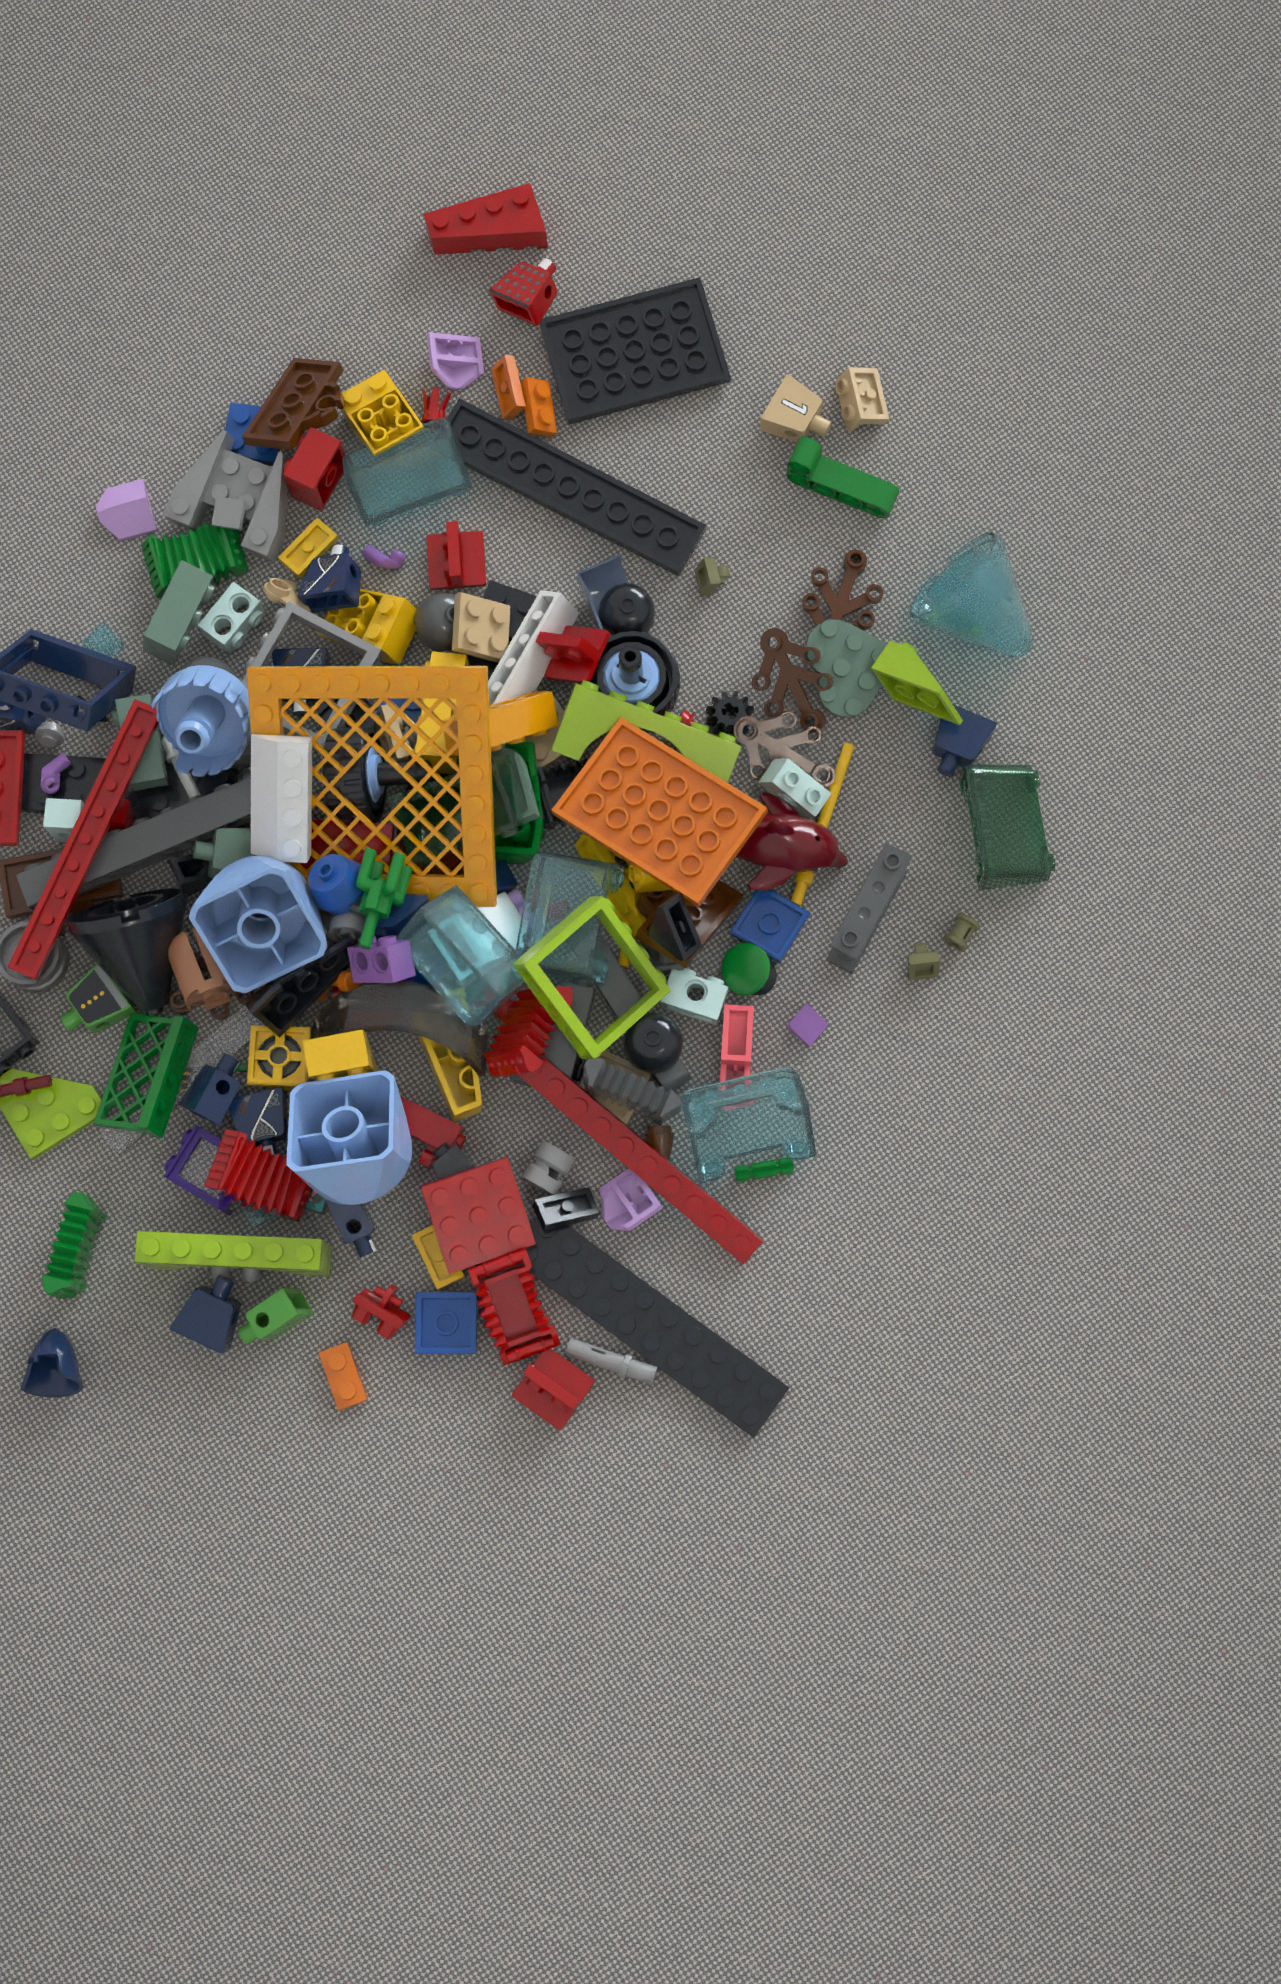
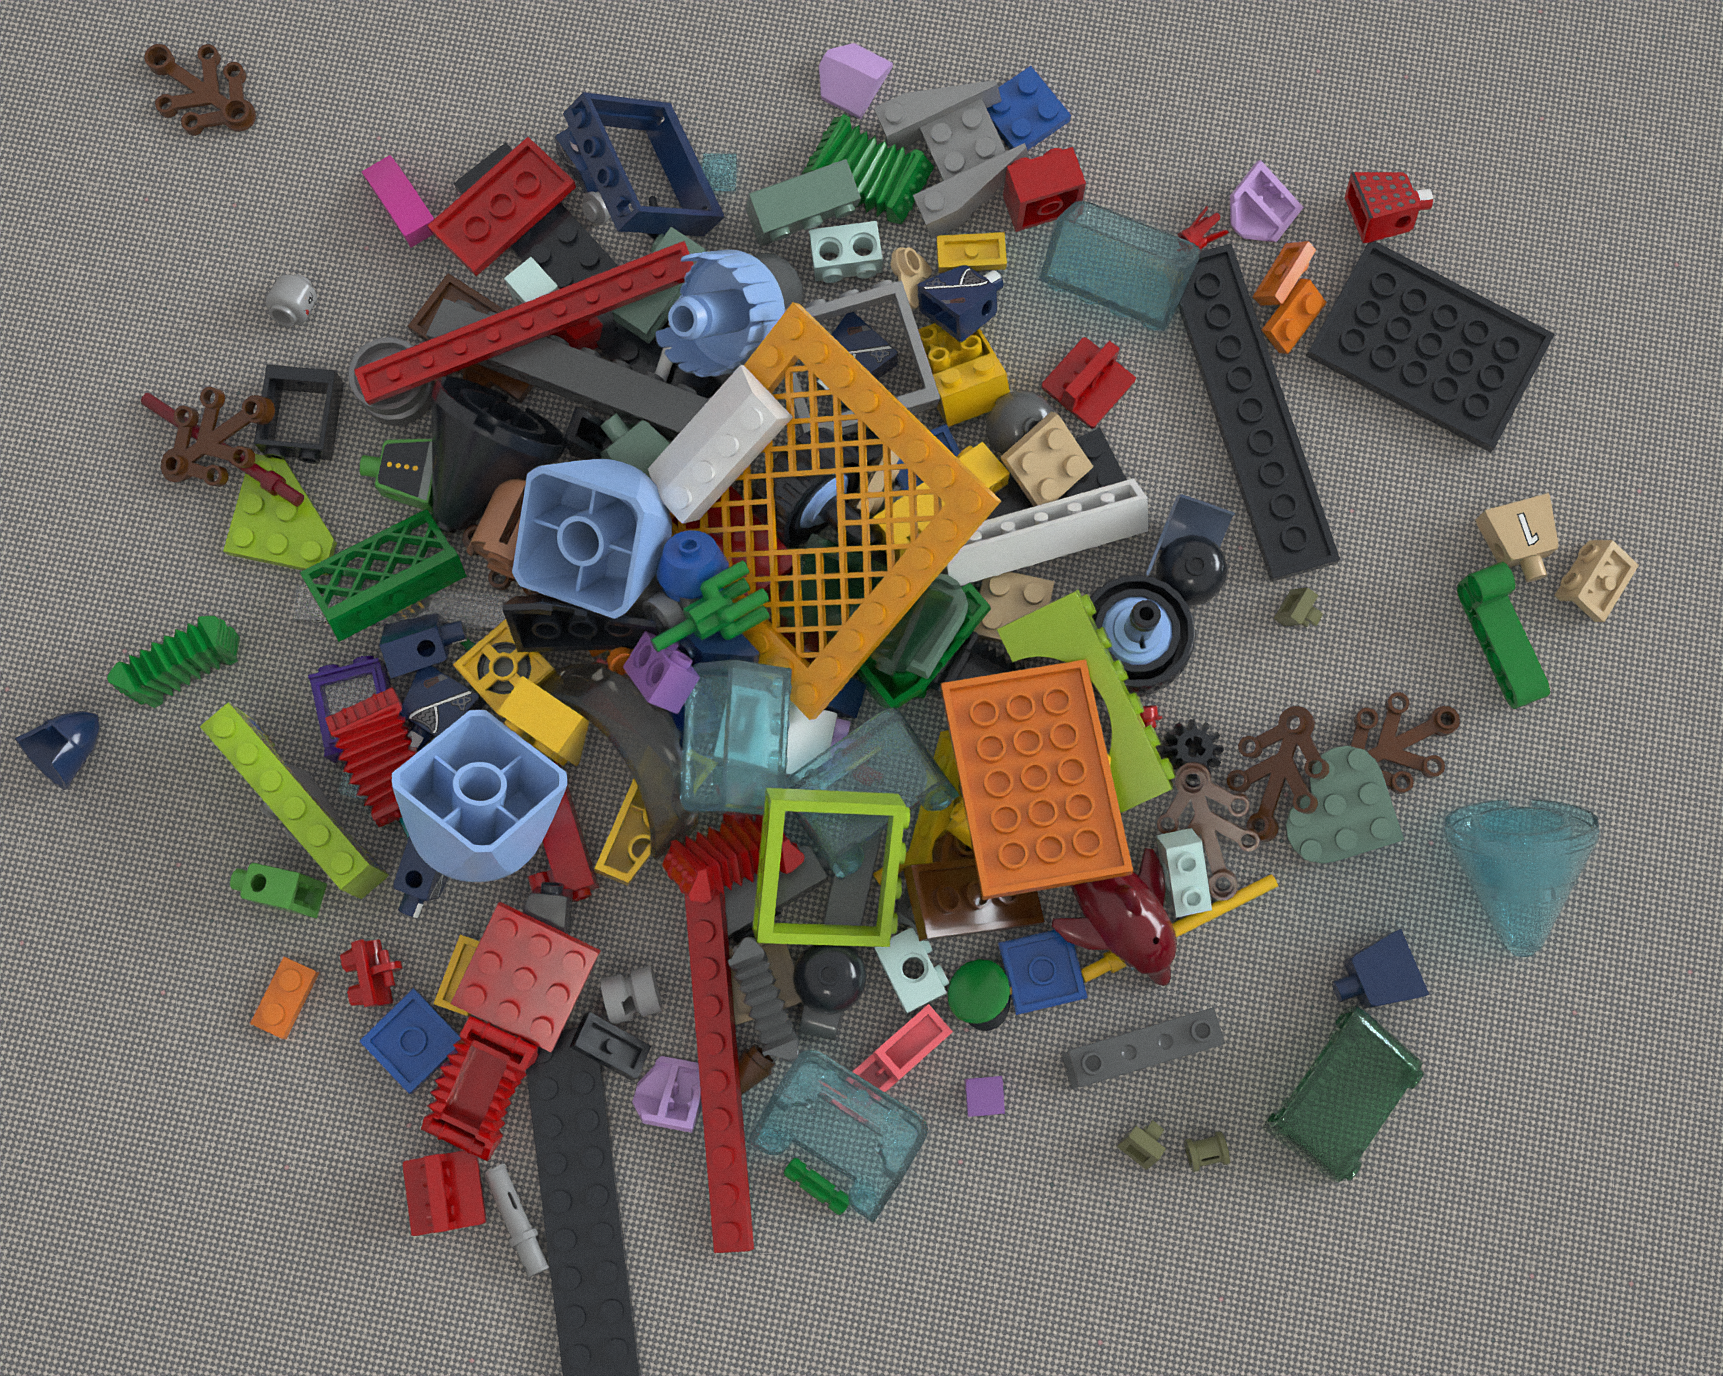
camera: 40 degrees right, 0 degrees up
(51, 773) = (563, 240): medium lavender arm -> none
(210, 1316) = (226, 834): dark blue torso -> none
(228, 513) = (929, 157): light grey tile -> none
(298, 401) = (1083, 118): reddish brown plate -> none
(379, 413) = (1146, 191): yellow slope -> none
(381, 560) = (1025, 325): medium lavender arm -> none
(488, 223) = (1409, 113): red wedge -> none
(515, 719) = (994, 572): light orange brick -> none
(573, 652) = (1105, 561): red bracket -> none
(675, 929) = (942, 898): black slope -> none
(911, 682) = (1385, 881): lime slope -> none

